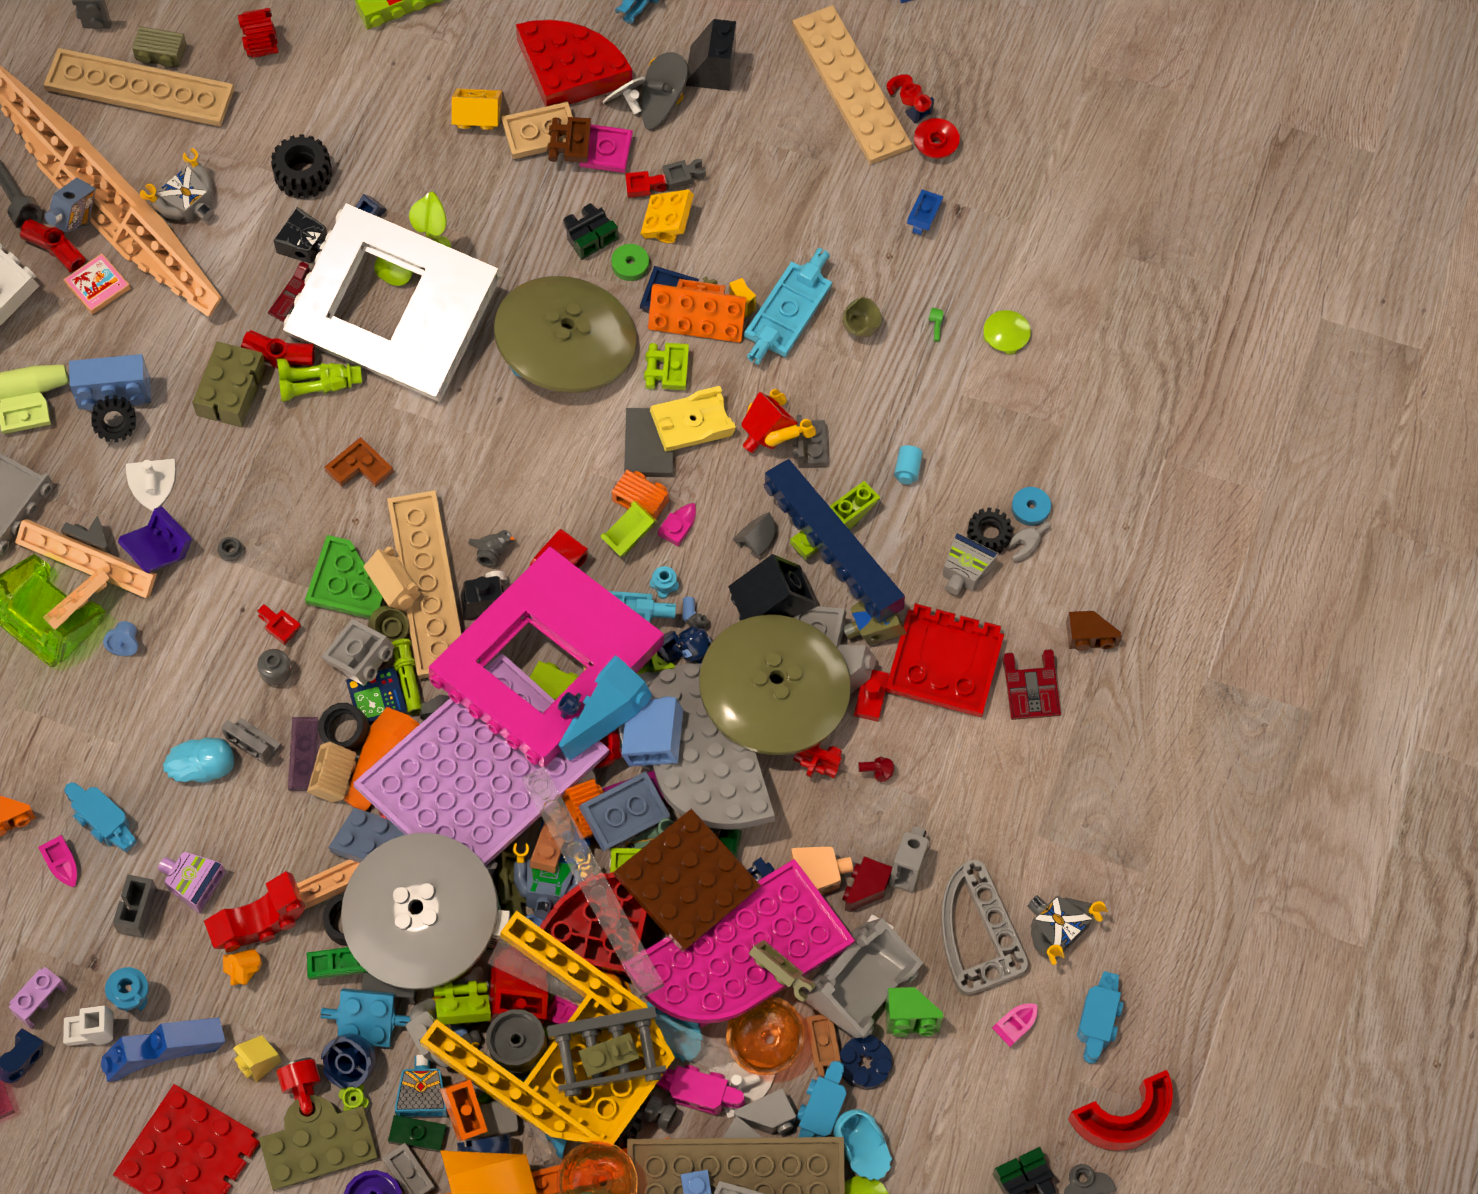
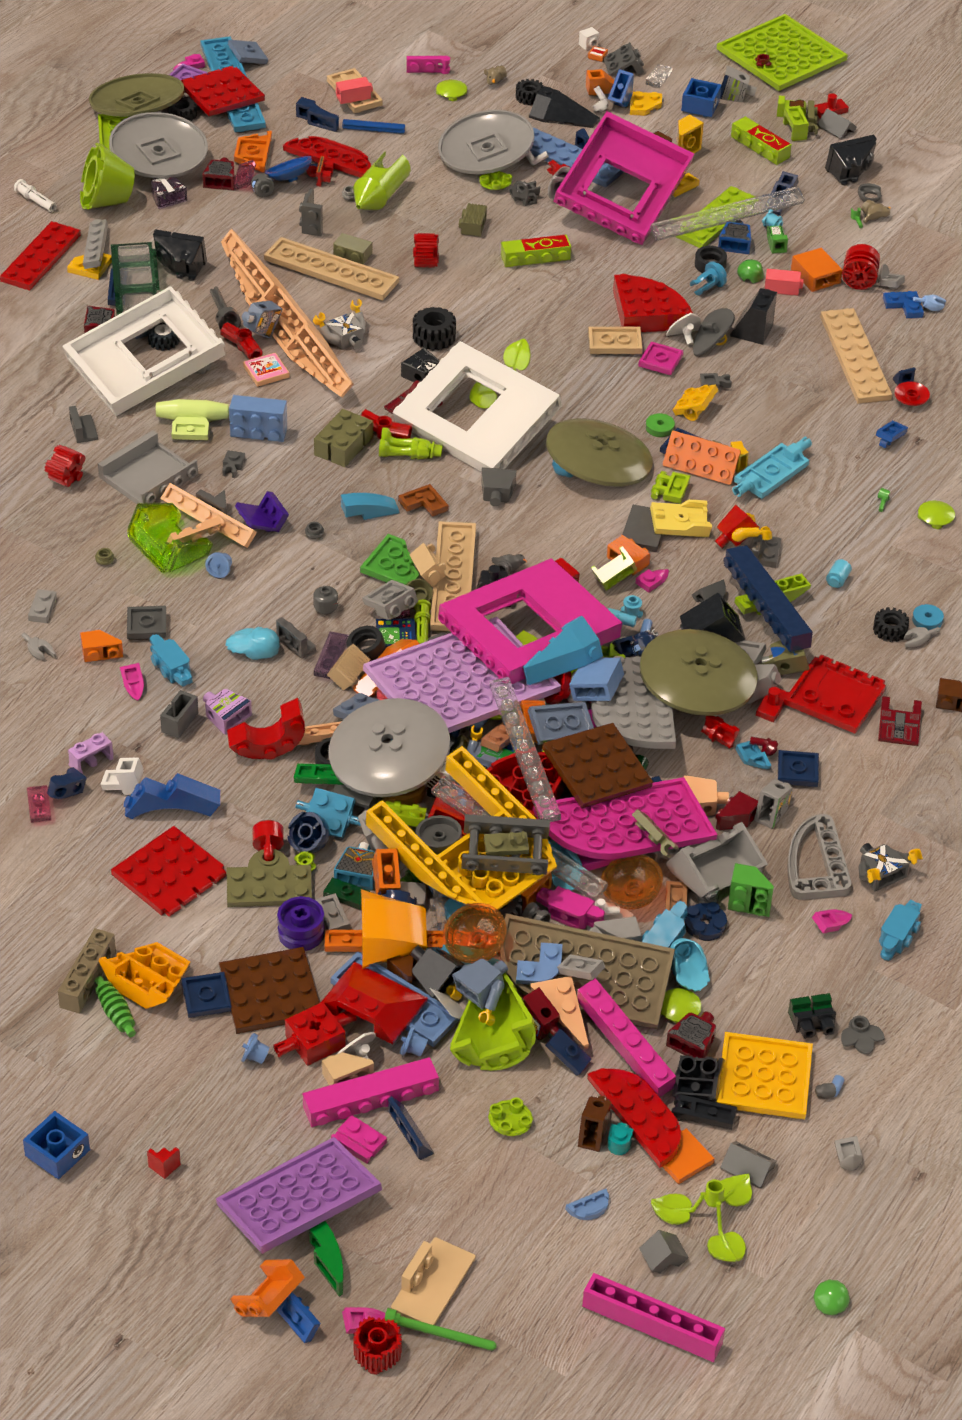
camera: 15 degrees right, 20 degrees down
(52, 758) = (146, 621): none -> dark grey plate
(93, 454) = (232, 461): none -> dark grey plate
(109, 432) = (265, 439): black tyre -> none
(118, 993) = (158, 754): dark azure piece -> none
(151, 481) = (270, 482): white shield -> none
(241, 966) = (246, 766): light orange piece -> none
(256, 1057) = (239, 819): light yellow slope -> none
(279, 625) = (337, 579): red plate -> none
(290, 491) = (368, 505): none -> dark azure slope
(447, 418) = (497, 485): none -> dark grey torso
(476, 108) = (571, 318): yellow slope -> none
(569, 704) = (538, 642): dark blue plate -> none
(577, 139) = (640, 345): reddish brown plate -> none
(591, 231) = (635, 401): hips -> none
(640, 183) = (682, 381): red plate -> none
(862, 317) = (826, 481): olive hair -> none
(865, 785) = (752, 755): none -> dark azure slope
(910, 93) = (898, 363): red piece -> none
(925, 793) = (798, 768): none -> dark blue plate
(967, 564) = (869, 639): light grey torso -> none
(1128, 1131) = (903, 999): red brick -> none

